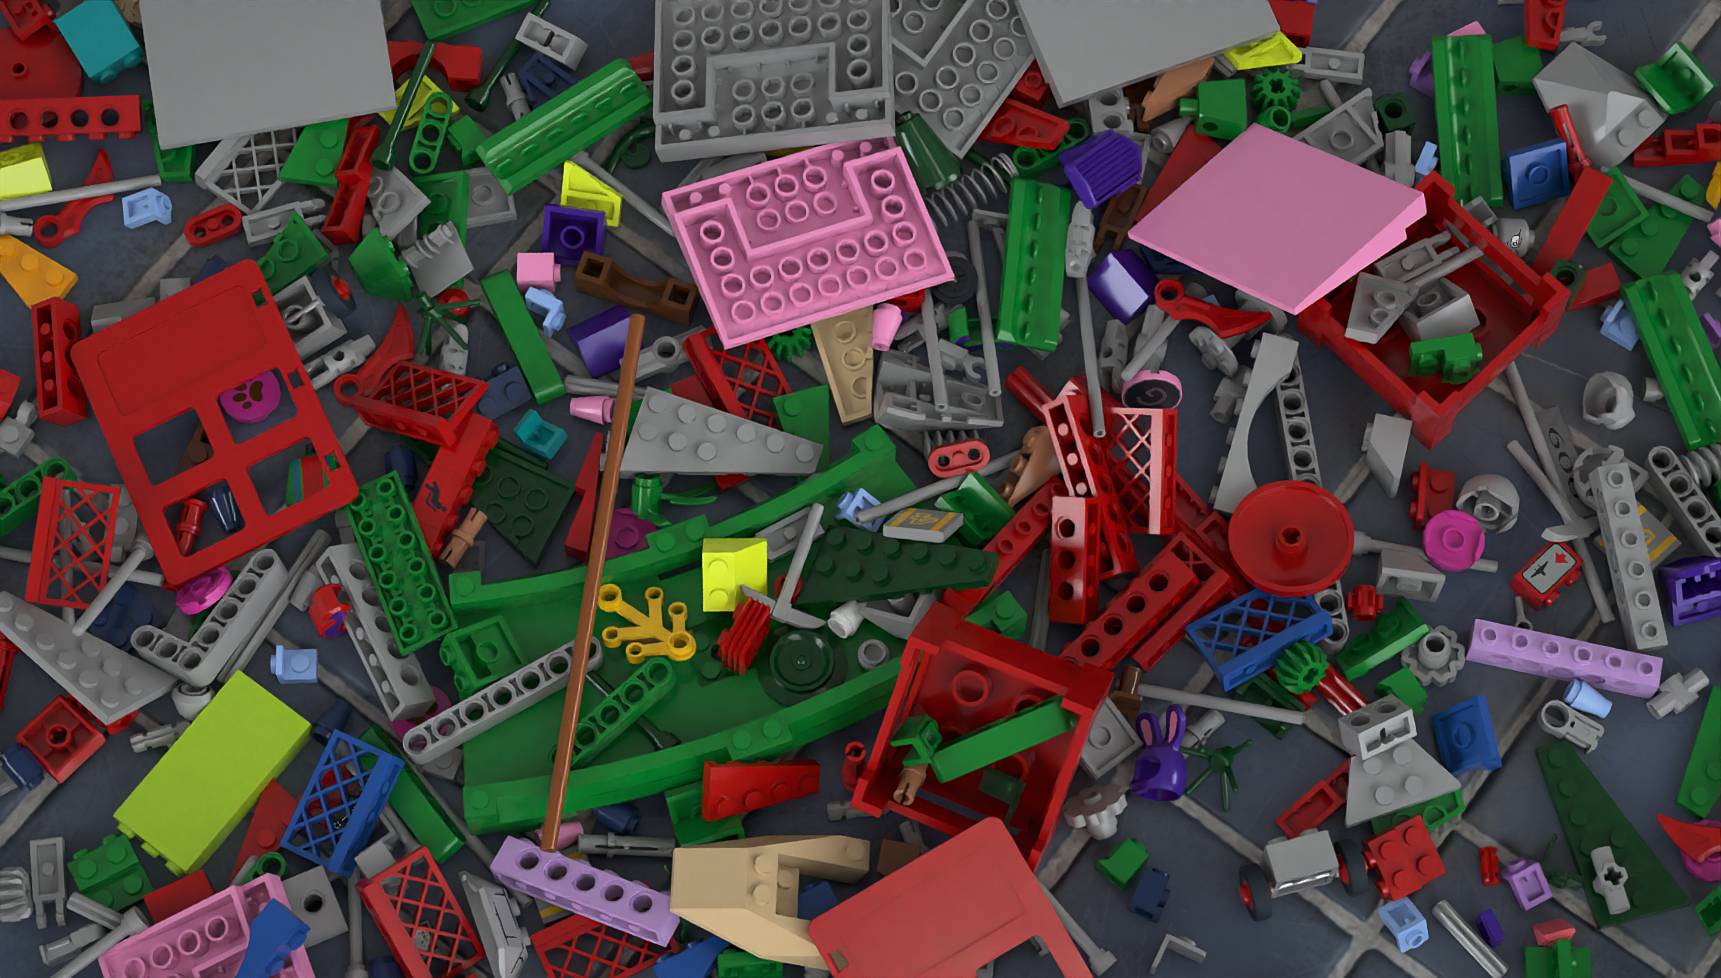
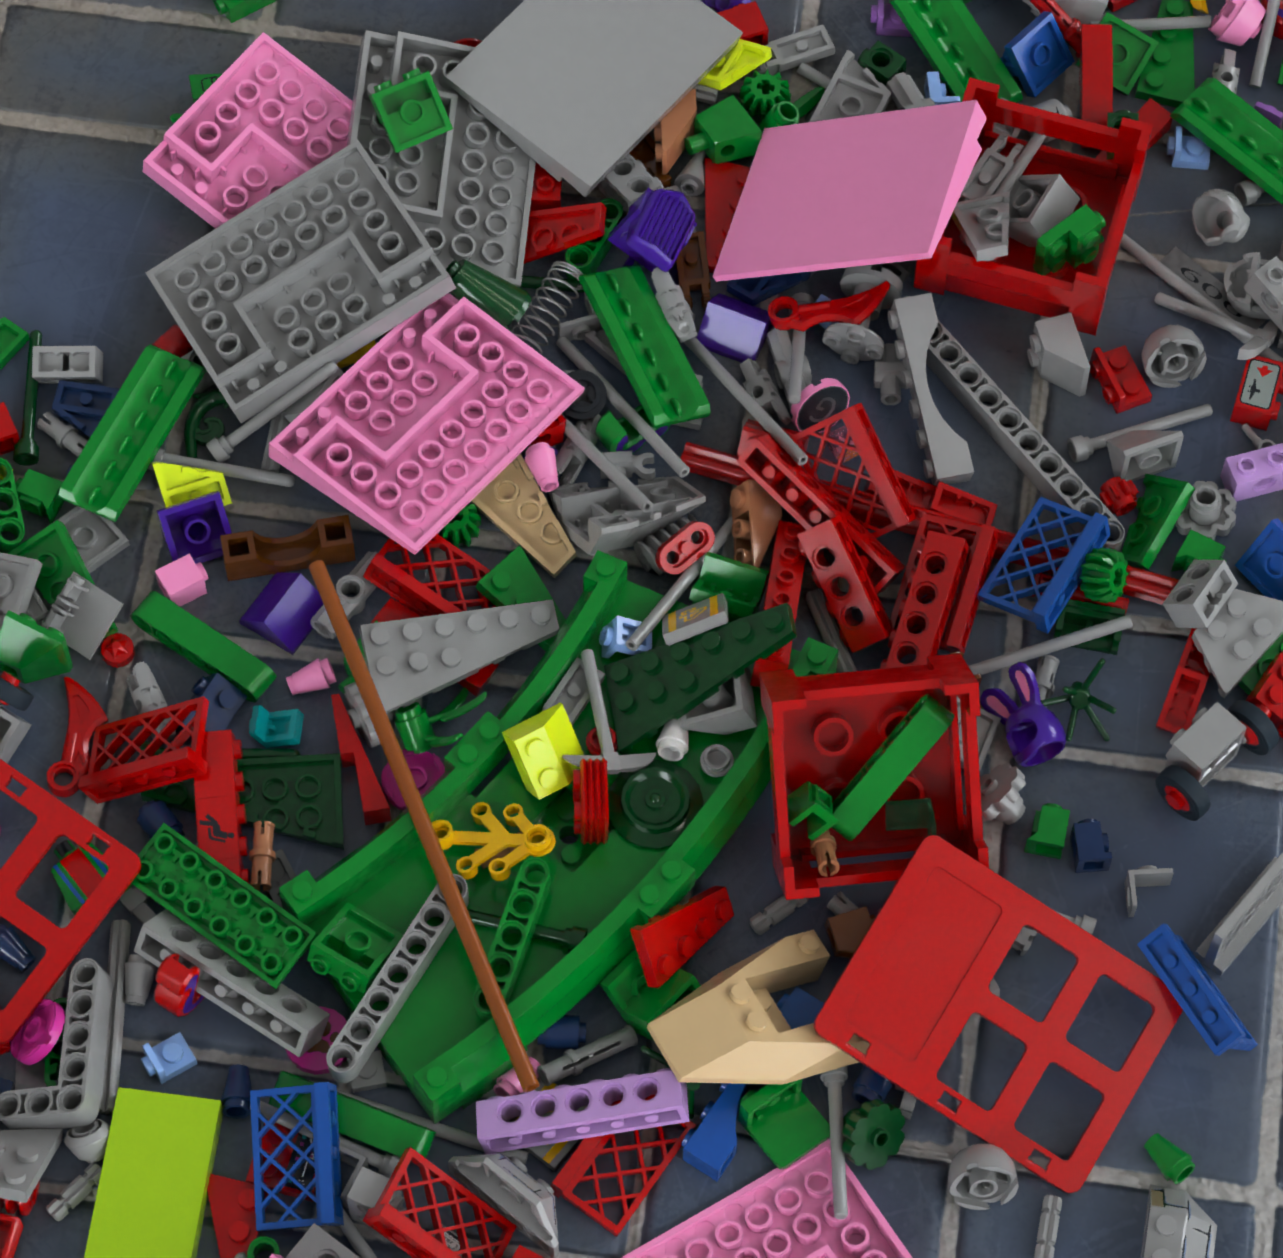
camera: 30 degrees left, 5 degrees down
(340, 360) = (40, 752): light grey hinge -> none
(434, 313) = (110, 662): dark green plant -> none
(547, 305) = (211, 607): light blue bracket -> none
(595, 387) = (298, 659): light grey axle -> none
(637, 174) = (223, 446): none -> light grey piece
(853, 765) = (760, 873): red pin -> none
(1291, 538) = (1025, 468): red dish -> none
(1453, 540) = (1161, 402): dark pink tile -> none

